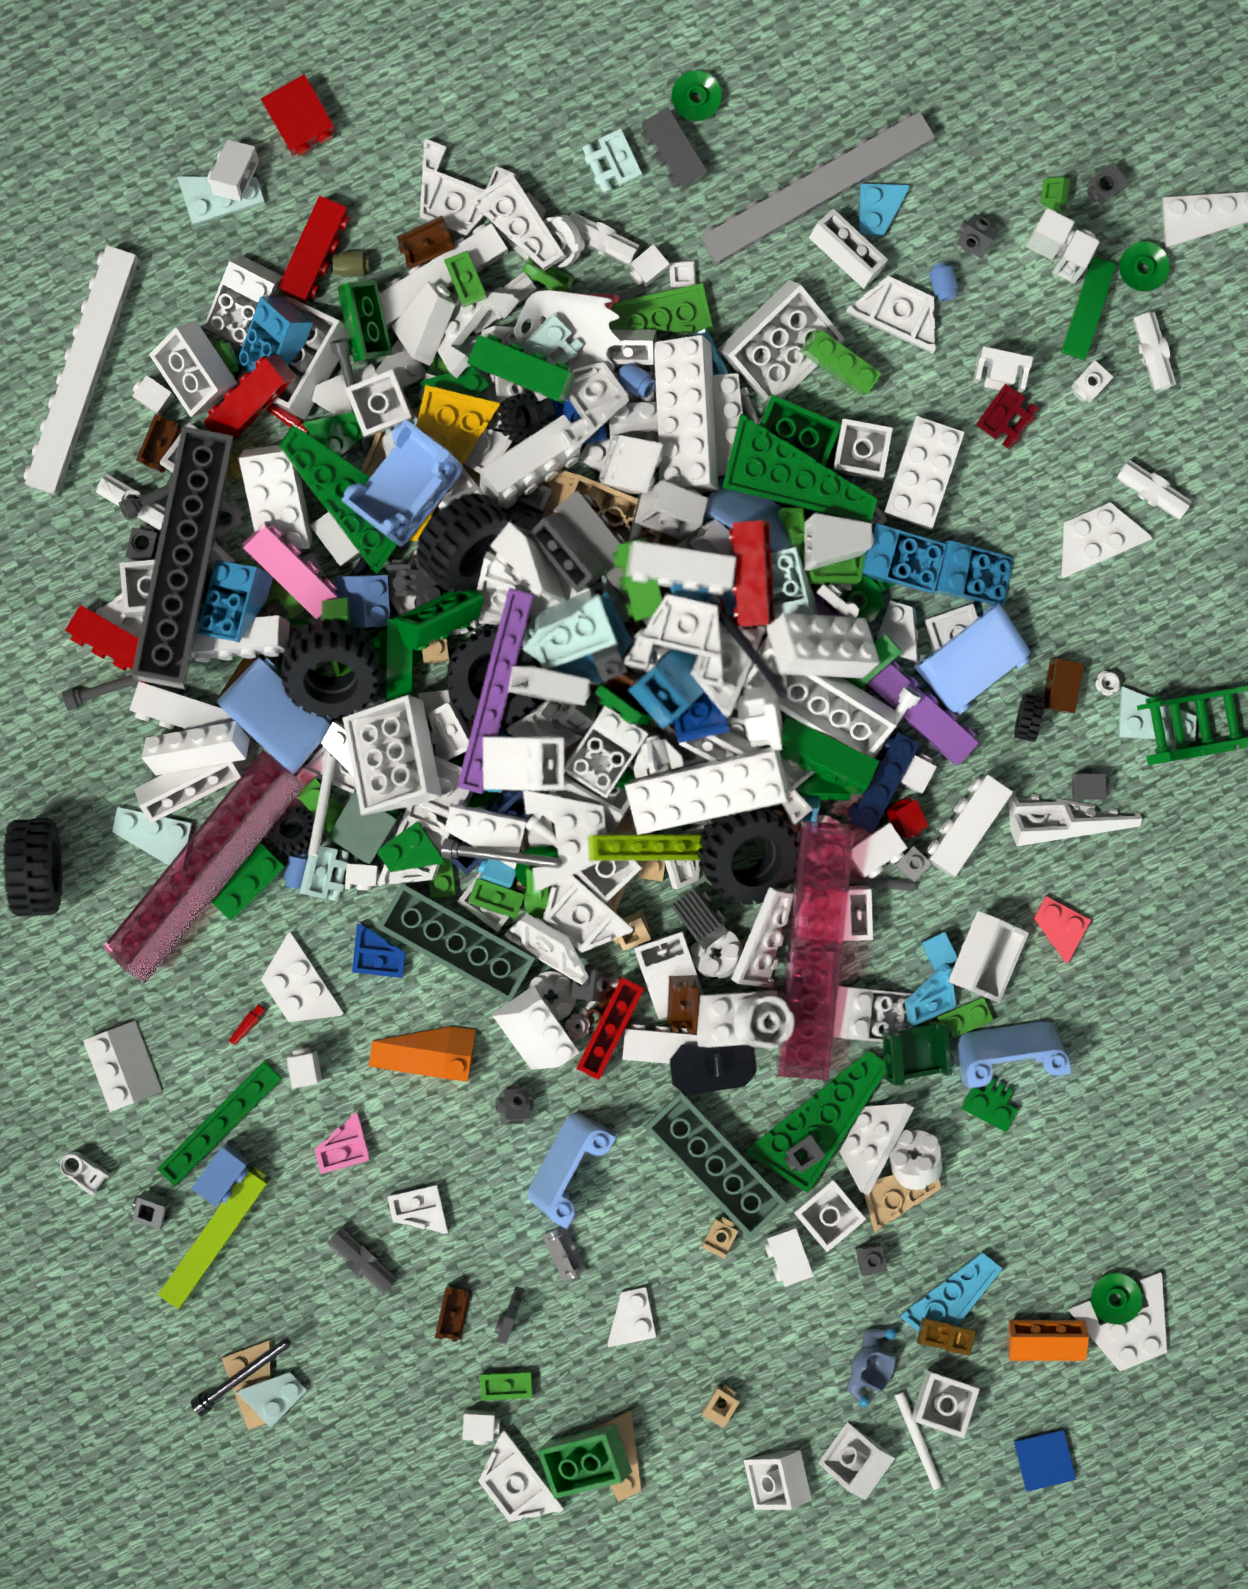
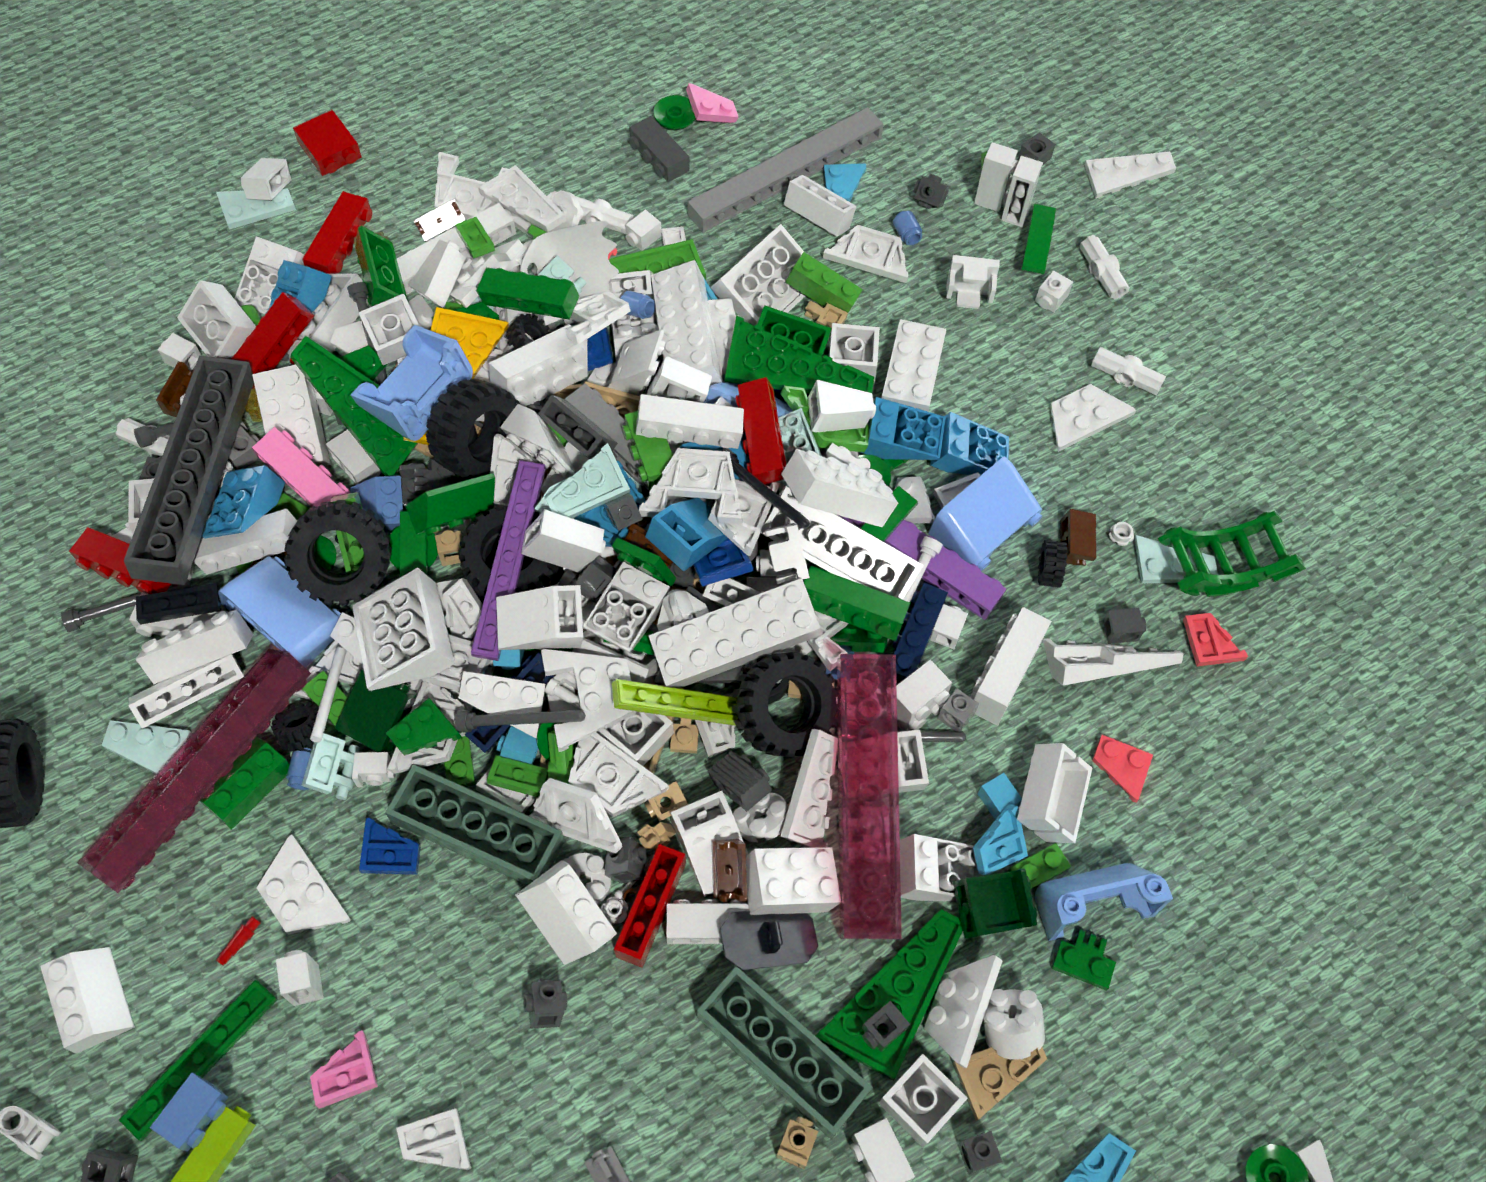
camera: 10 degrees left, 25 degrees down
(81, 370) = (110, 342): white brick -> none
(176, 701) = (177, 603): none -> black plate
(432, 1053) = (450, 955): orange wedge -> none
(572, 1141) = (587, 1103): light blue windscreen -> none
(618, 967) = (656, 835): none -> tan plate
(619, 157) = (611, 158): light aqua plate -> none
(738, 89) = (710, 106): none -> bright pink wing
(750, 1017) = (821, 869): white brick -> none
(842, 398) = (826, 315): none -> tan plate
(906, 818) = (949, 663): red brick -> none
(1000, 412) = (976, 318): dark red plate -> none
(1150, 255) = (1086, 201): green dish -> none
(1171, 808) = (1210, 641): none -> coral wing

